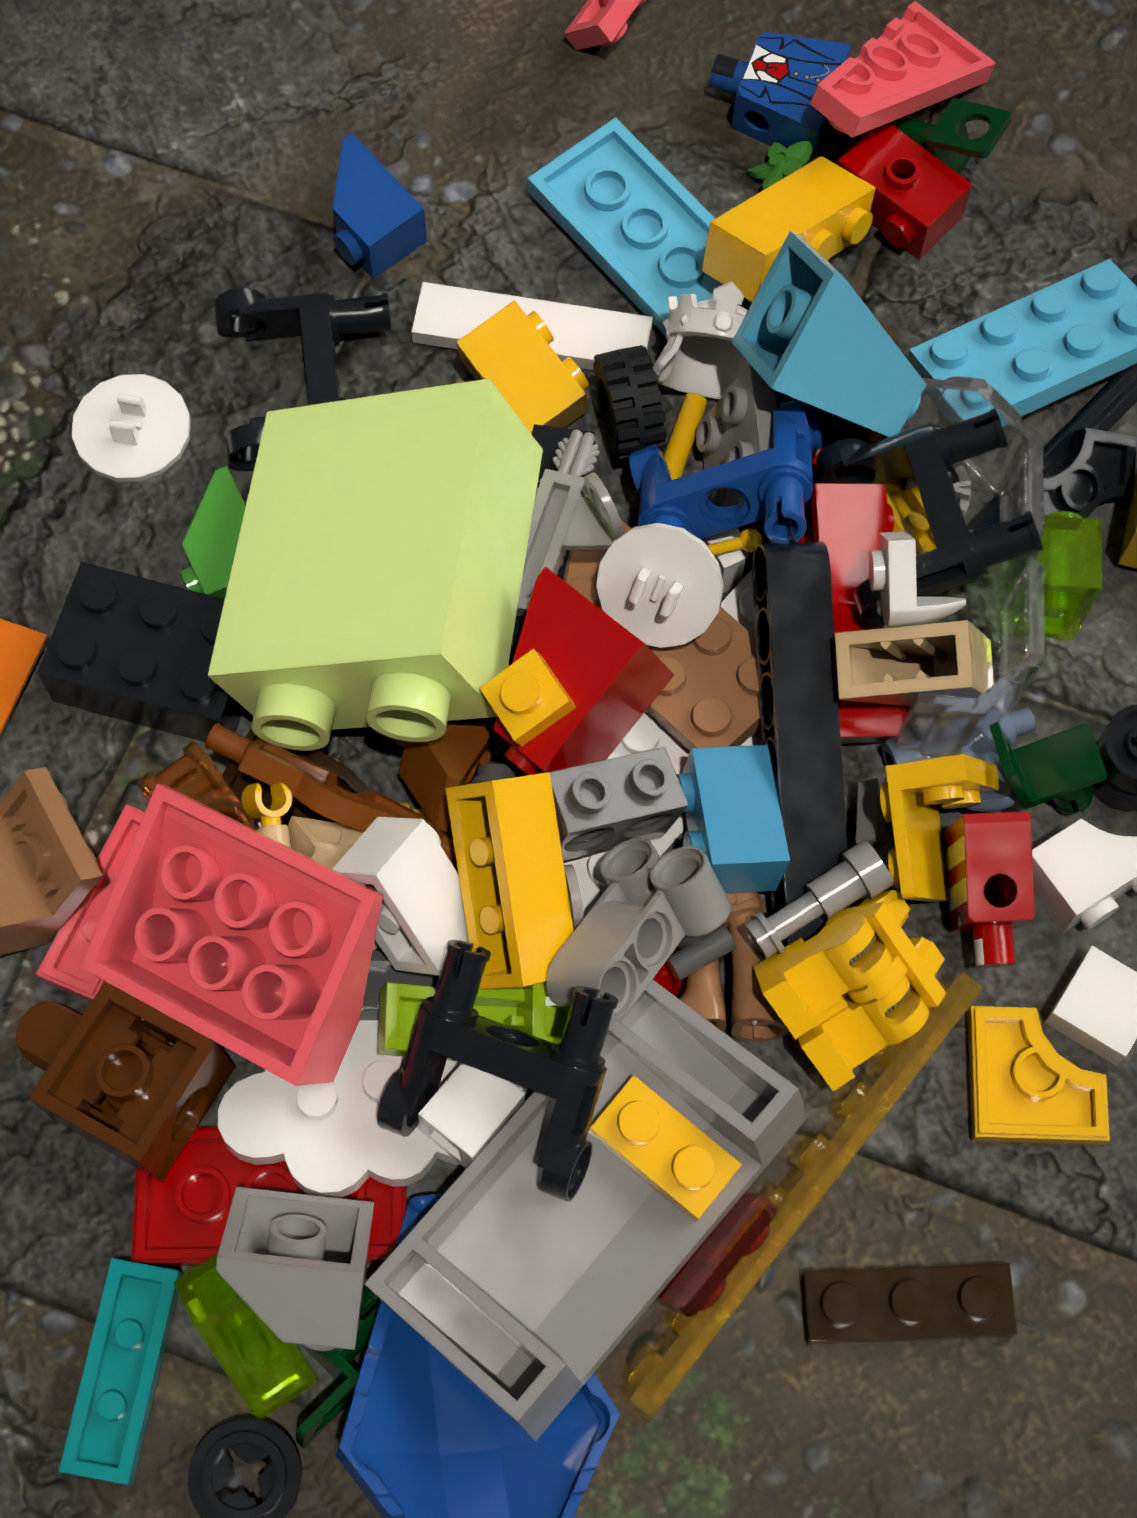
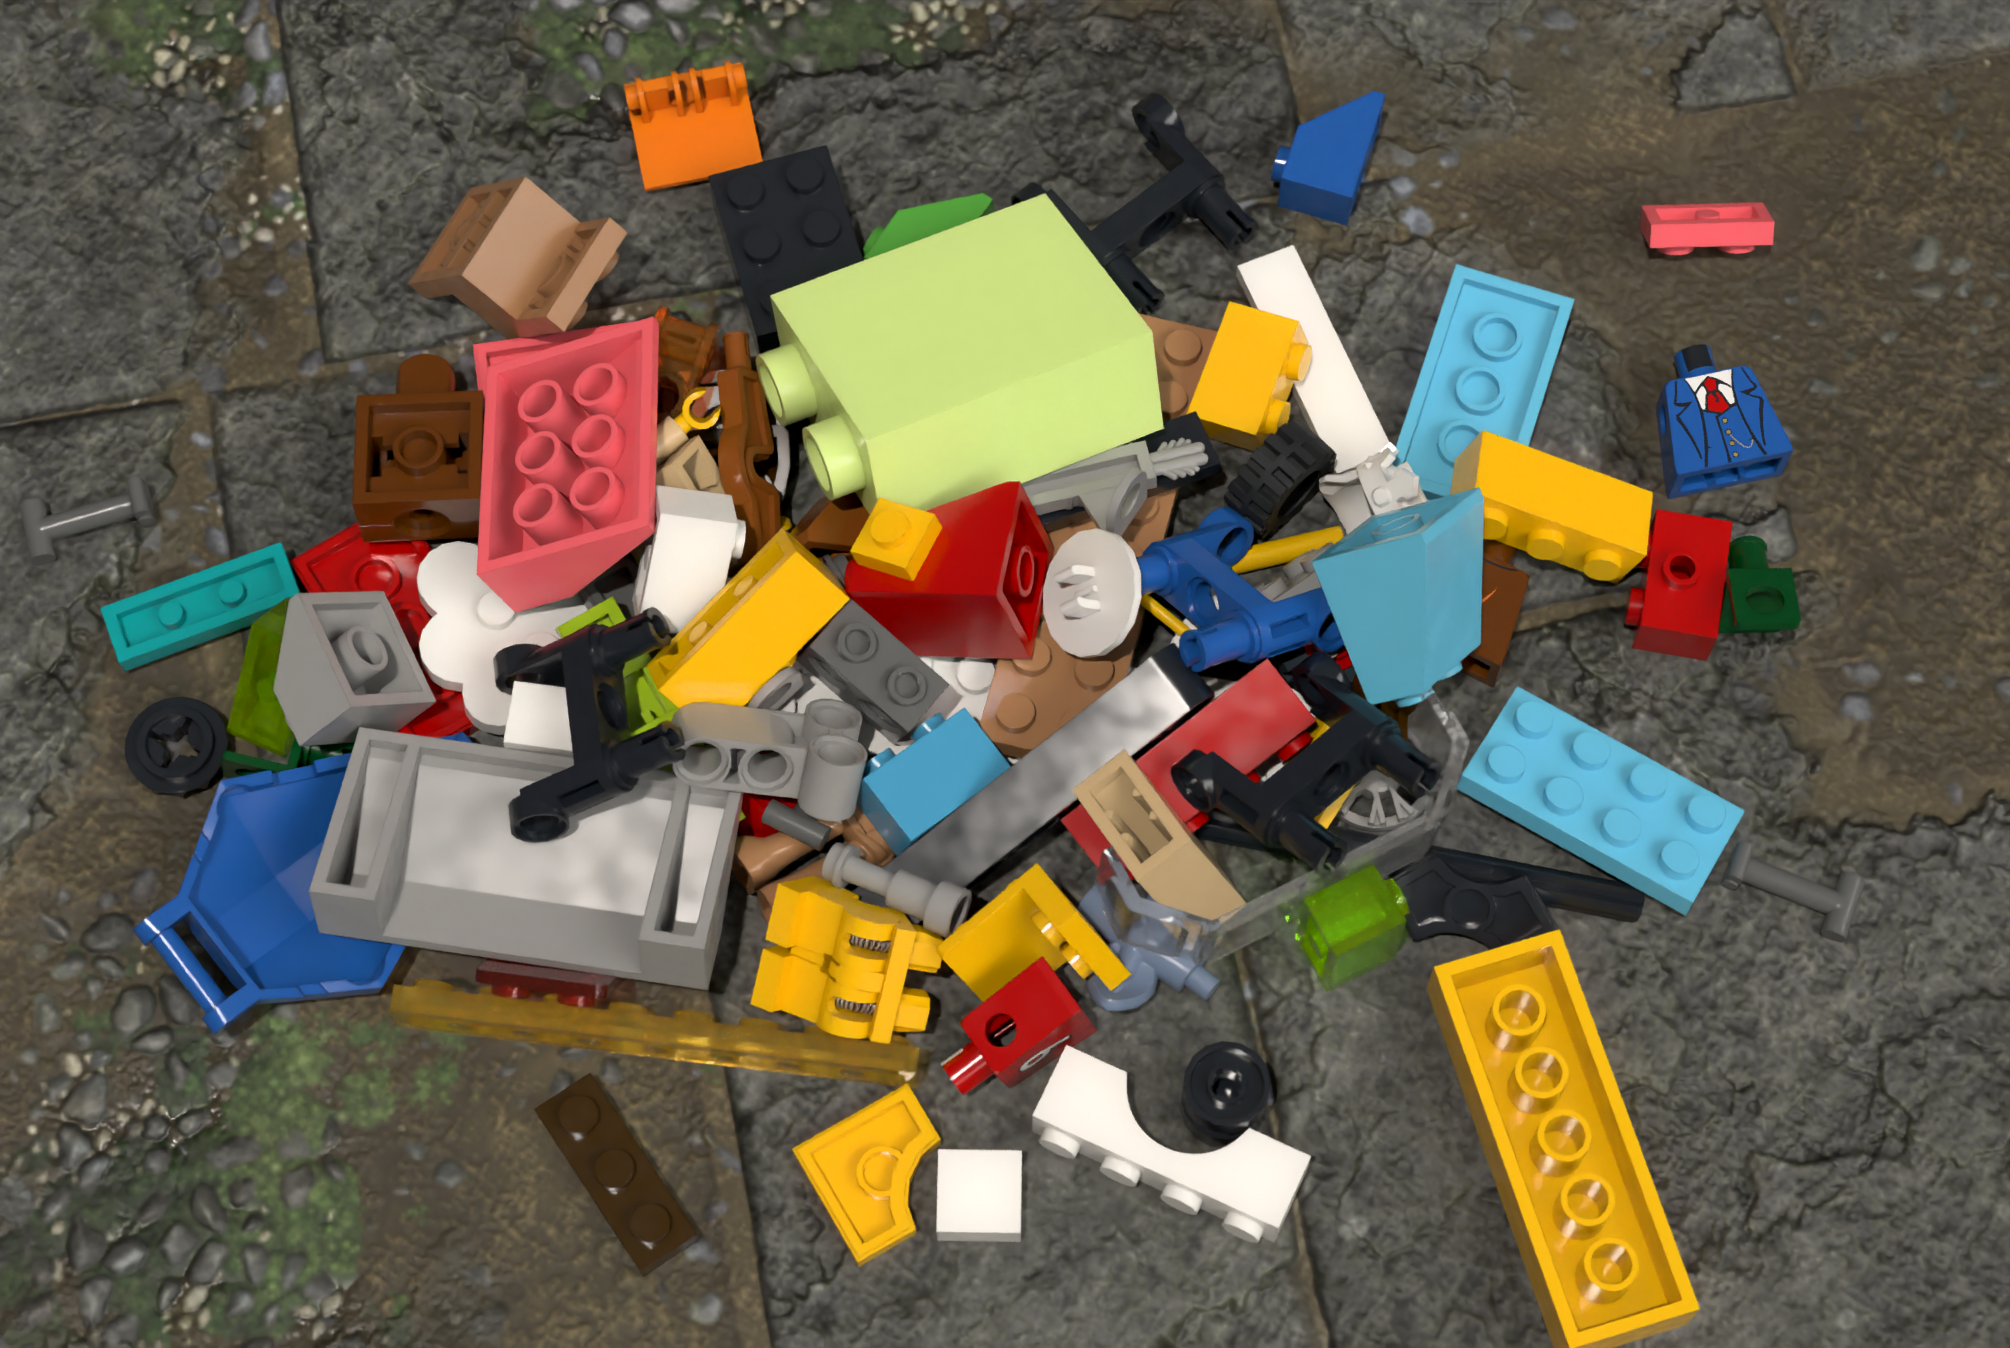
camera: 60 degrees right, 0 degrees up
(131, 428) = (997, 108): white piece -> none
(664, 1148) = (605, 887): yellow plate -> none
(781, 162) = (1637, 469): bright green plant -> none
(894, 573) = (1197, 760): white plate -> none
(900, 73) = (1805, 514): coral wing -> none
(1053, 767) = (1153, 1014): dark green bracket -> none

